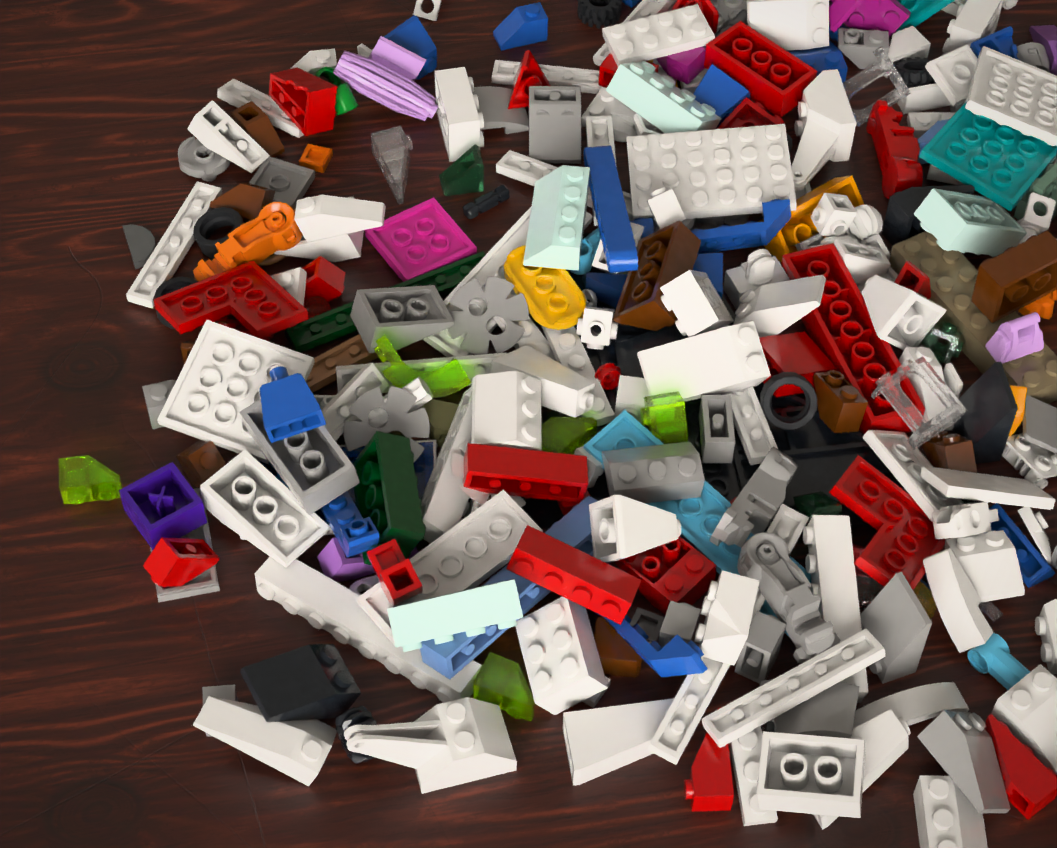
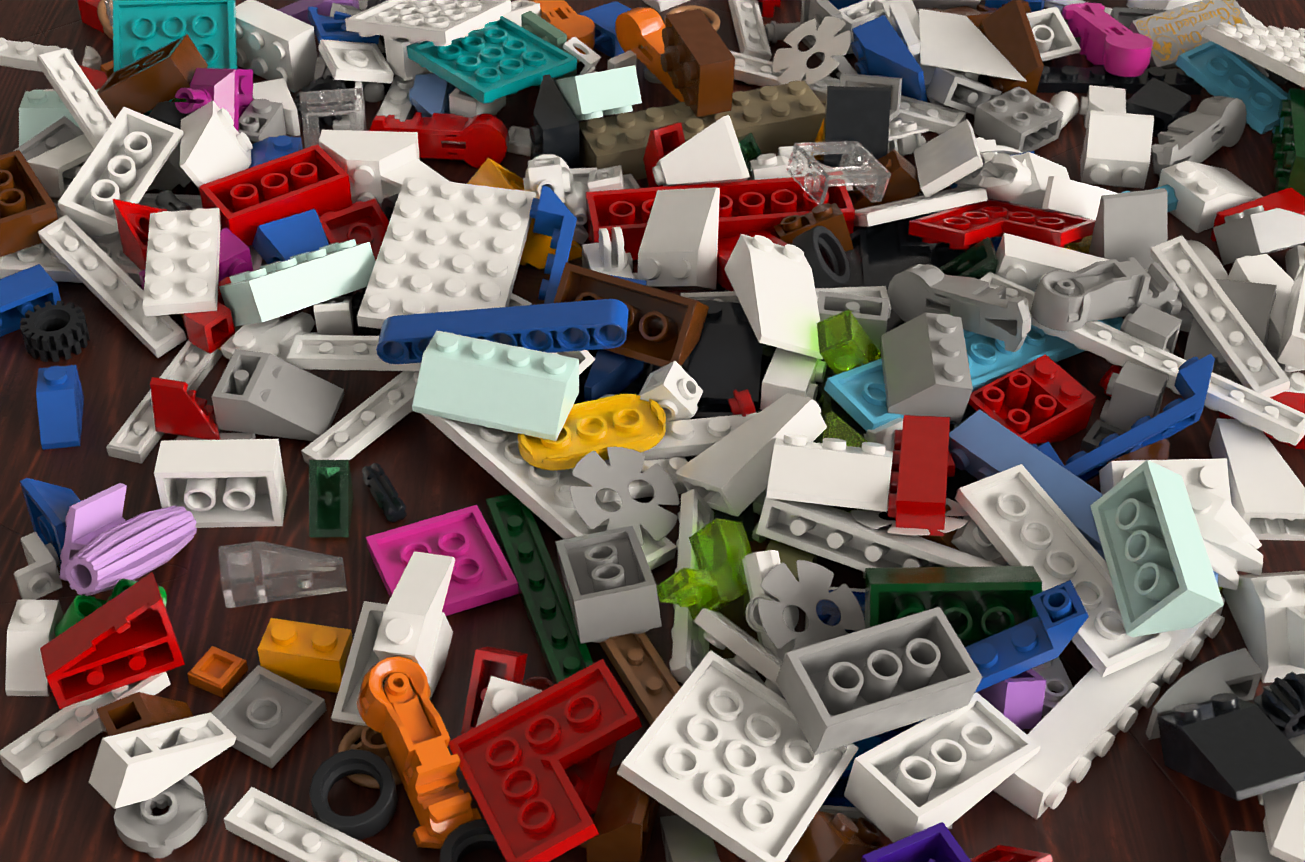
camera: 80 degrees left, 10 degrees down
(246, 199) = (297, 752): reddish brown slope -> none
(288, 405) = (846, 650): blue torso -> none
(326, 178) = (306, 653): none -> light orange brick
(376, 686) = (1228, 673): none -> light grey slope
(394, 572) = (1115, 596): red brick -> none
(508, 671) = (1226, 537): none -> white plate
(574, 574) = (1094, 442): red brick -> none
(629, 527) = (1031, 397): white slope -> none
(665, 207) = (513, 287): white brick -> none
(695, 304) = (700, 272): white slope -> none
(727, 618) = (1157, 326): white slope -> none
(1016, 339) = (769, 89): lavender piece -> none

